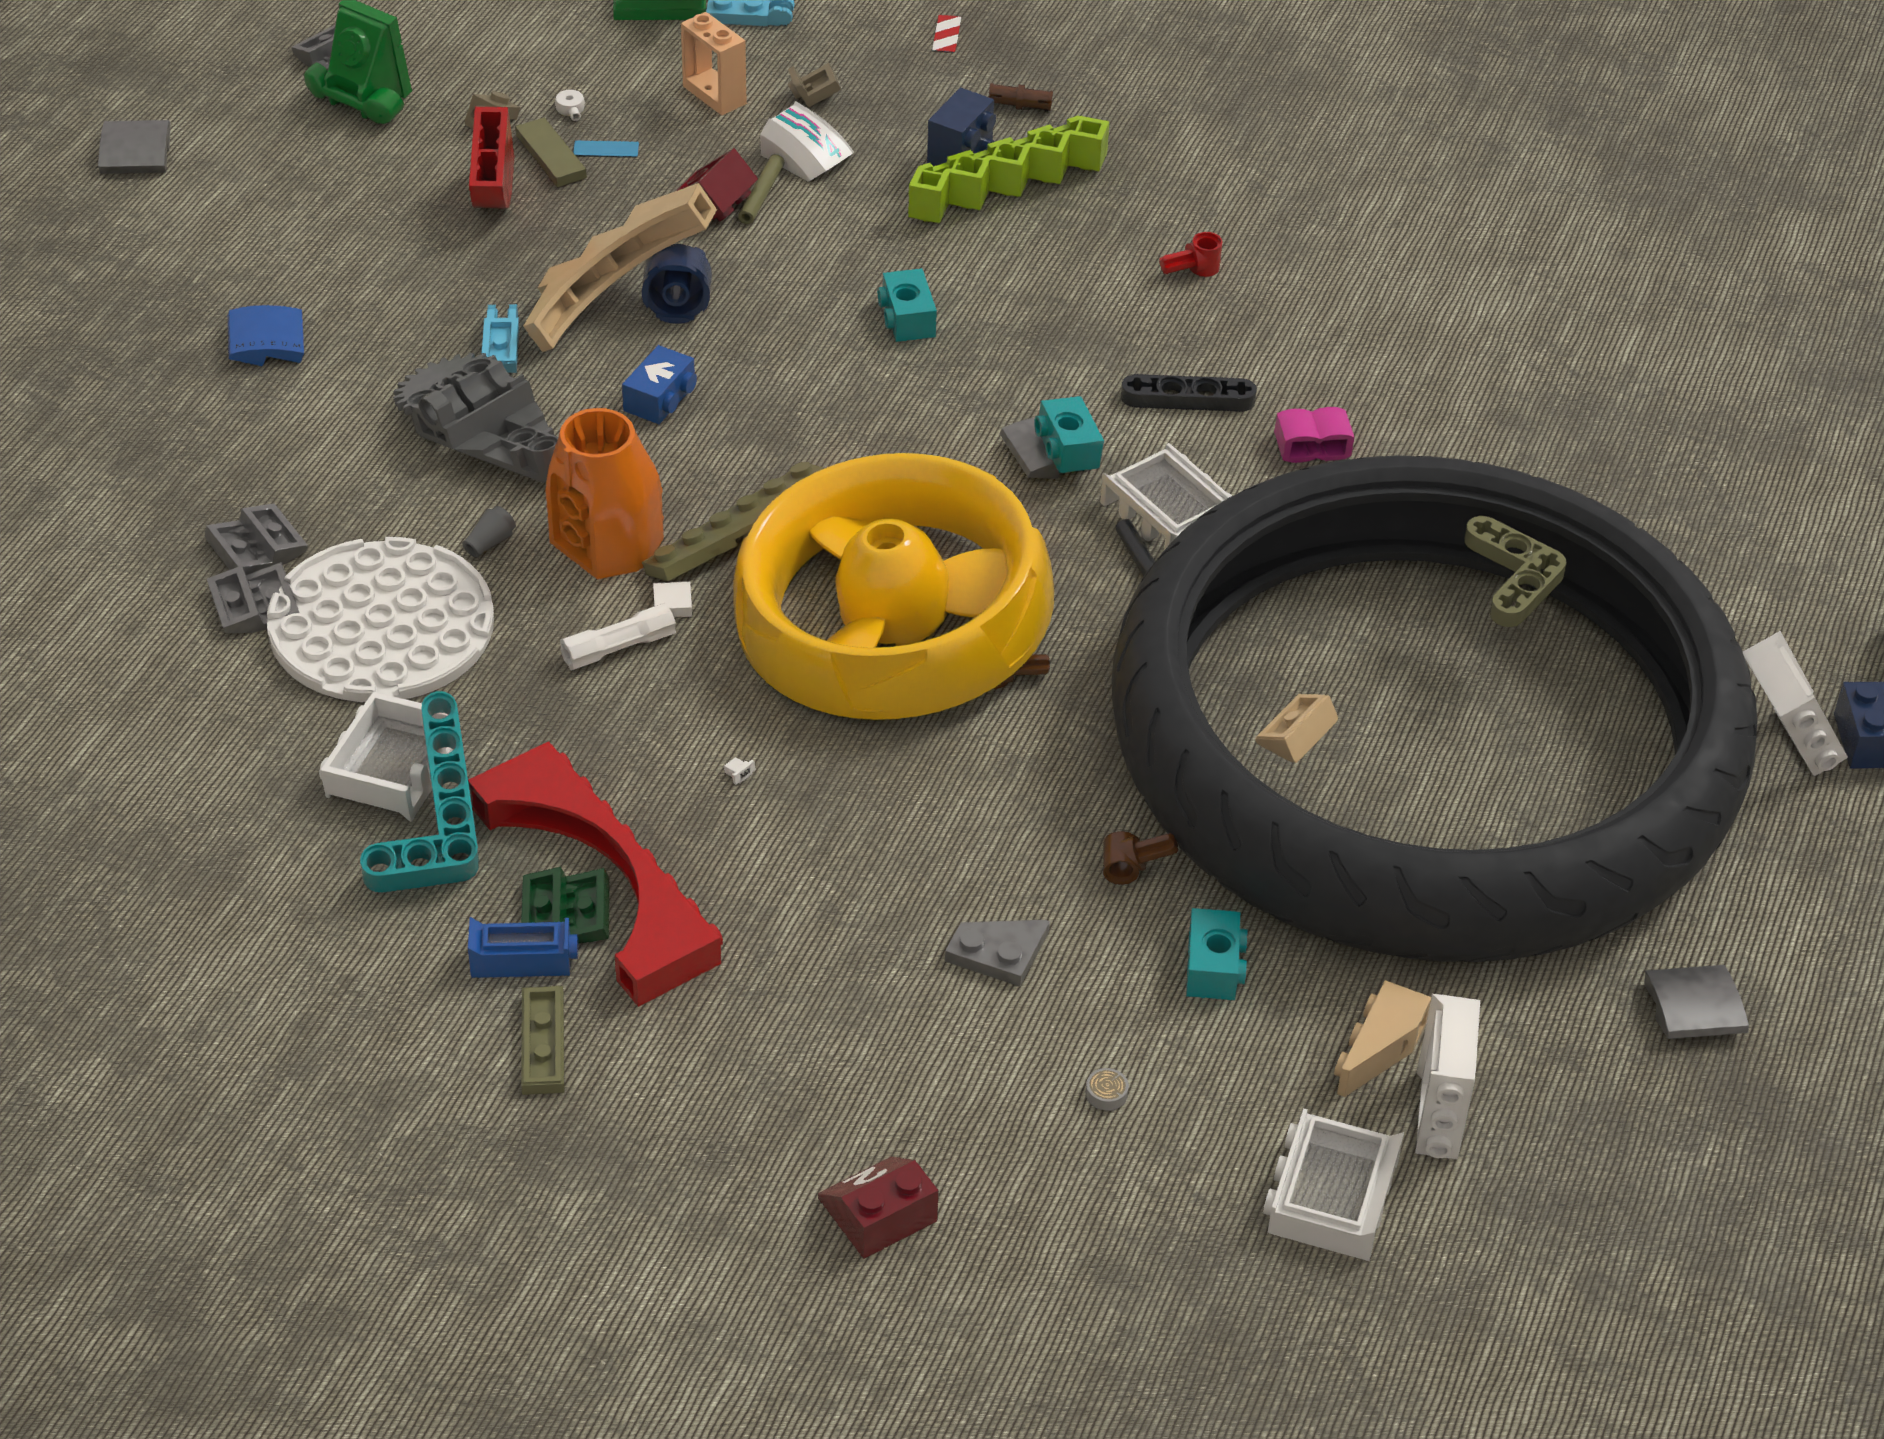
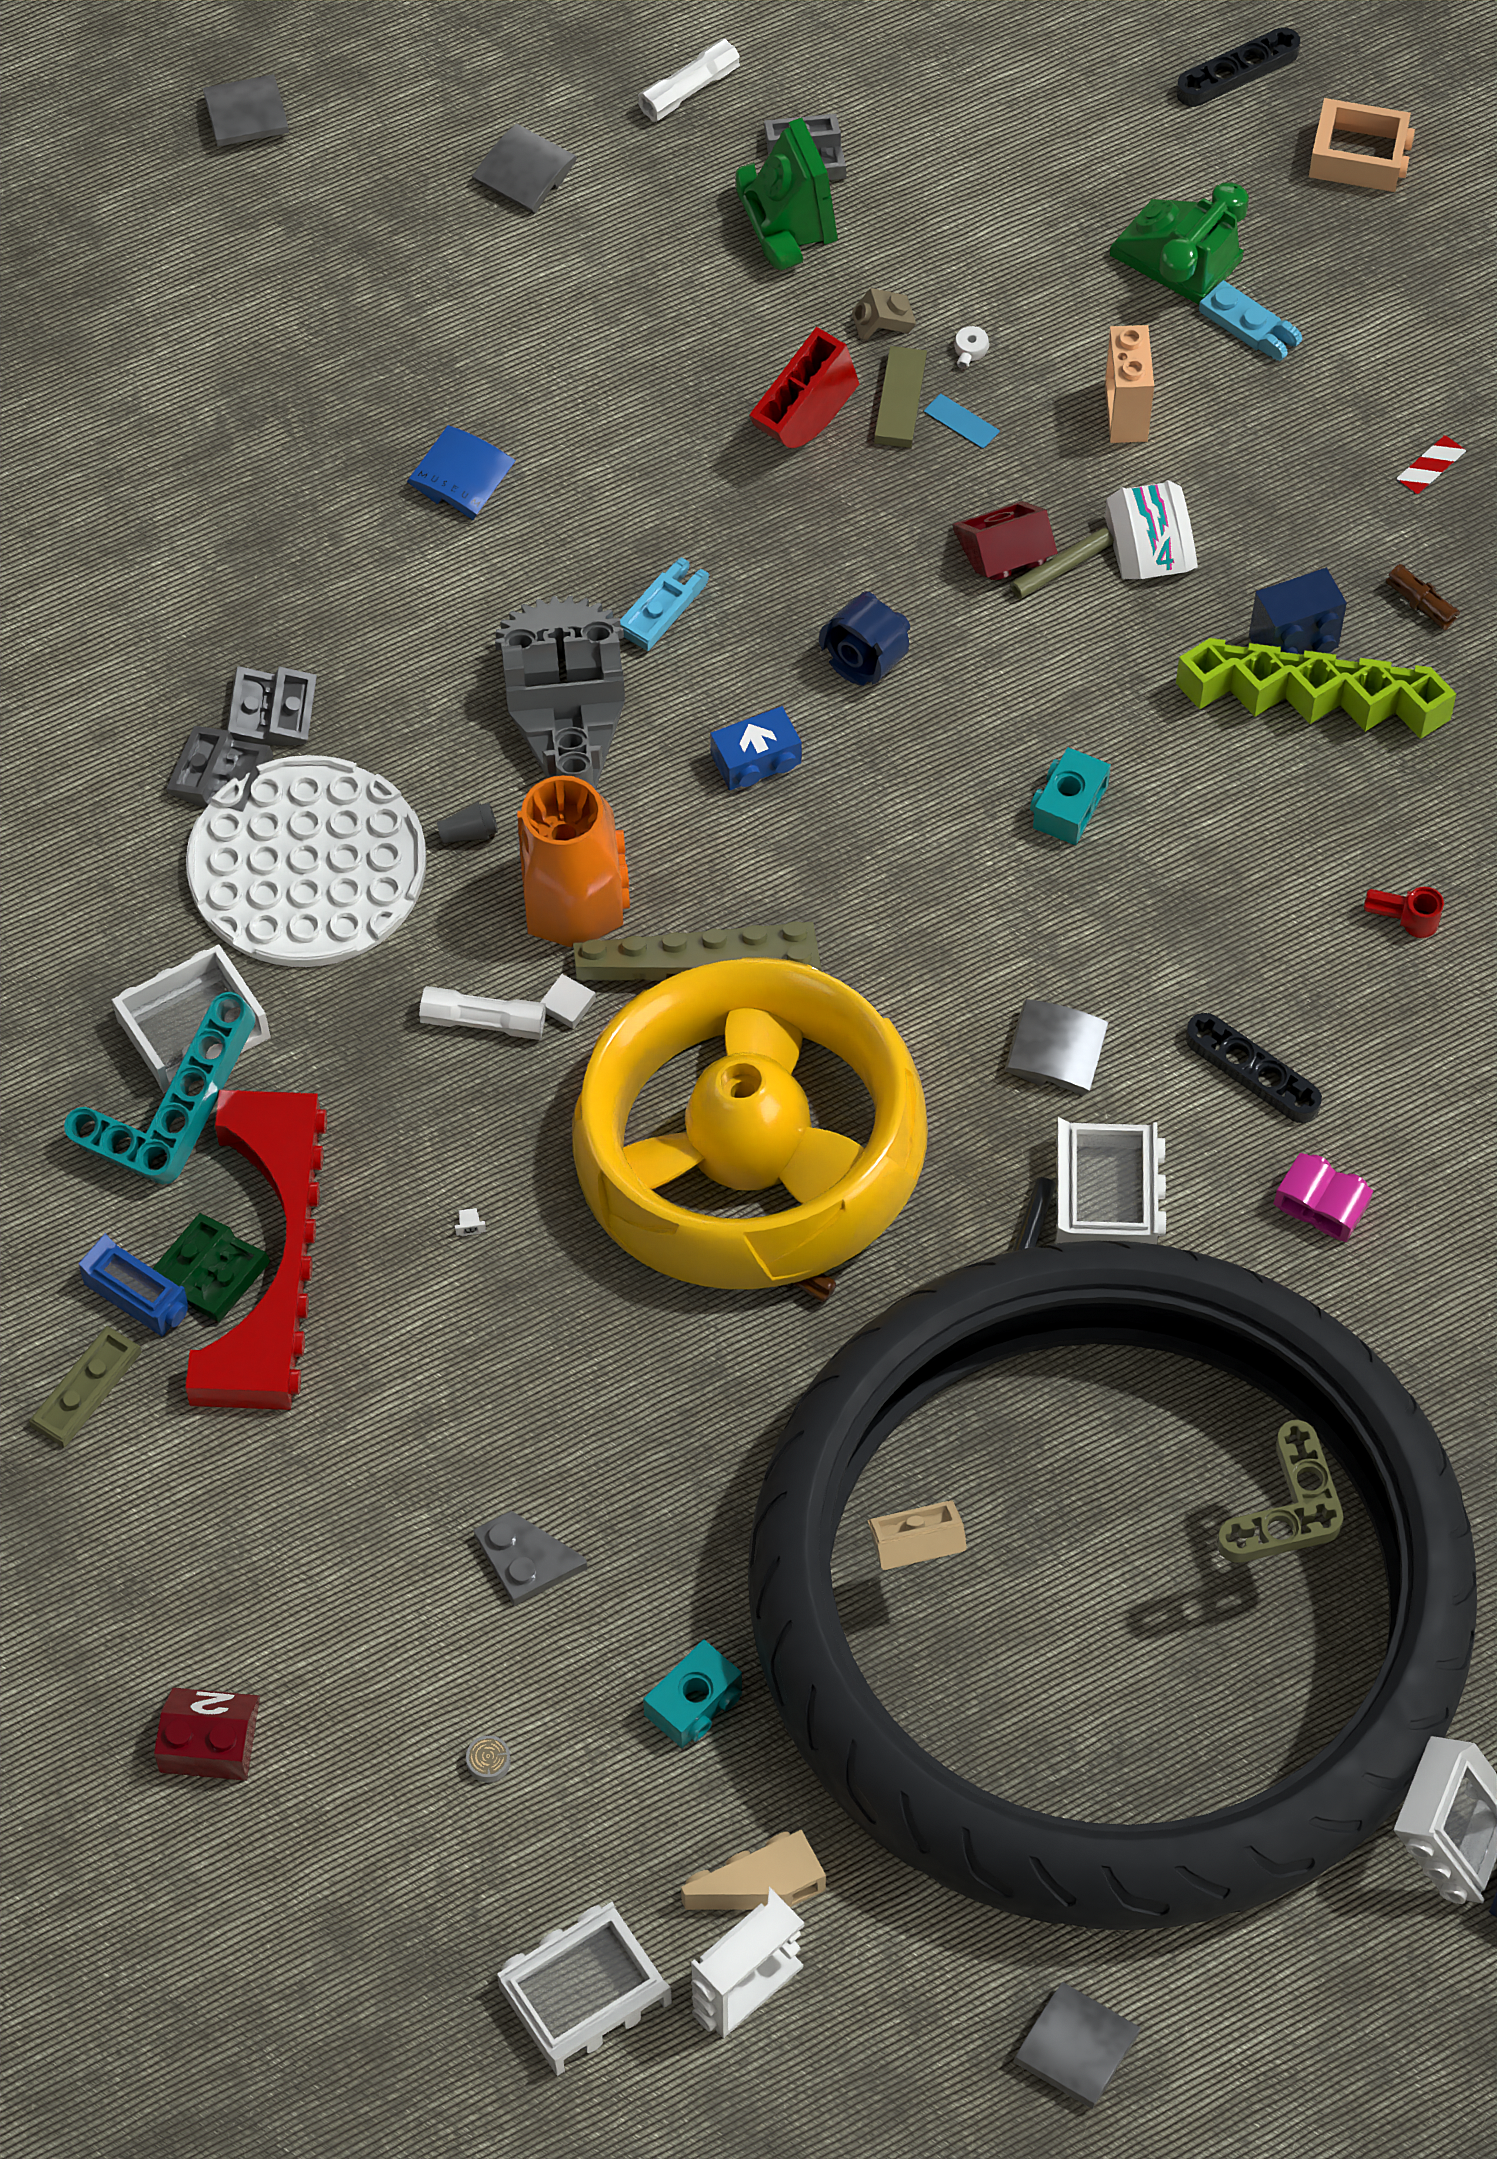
camera: 40 degrees right, 15 degrees up
(203, 60) = (668, 93): none -> white axle
(610, 255) = (769, 584): tan arch -> none
(815, 85) = (1223, 461): dark tan bracket -> none
(1069, 434) = (1063, 1073): teal brick -> none
(1127, 855) = (713, 1544): reddish brown axle -> none

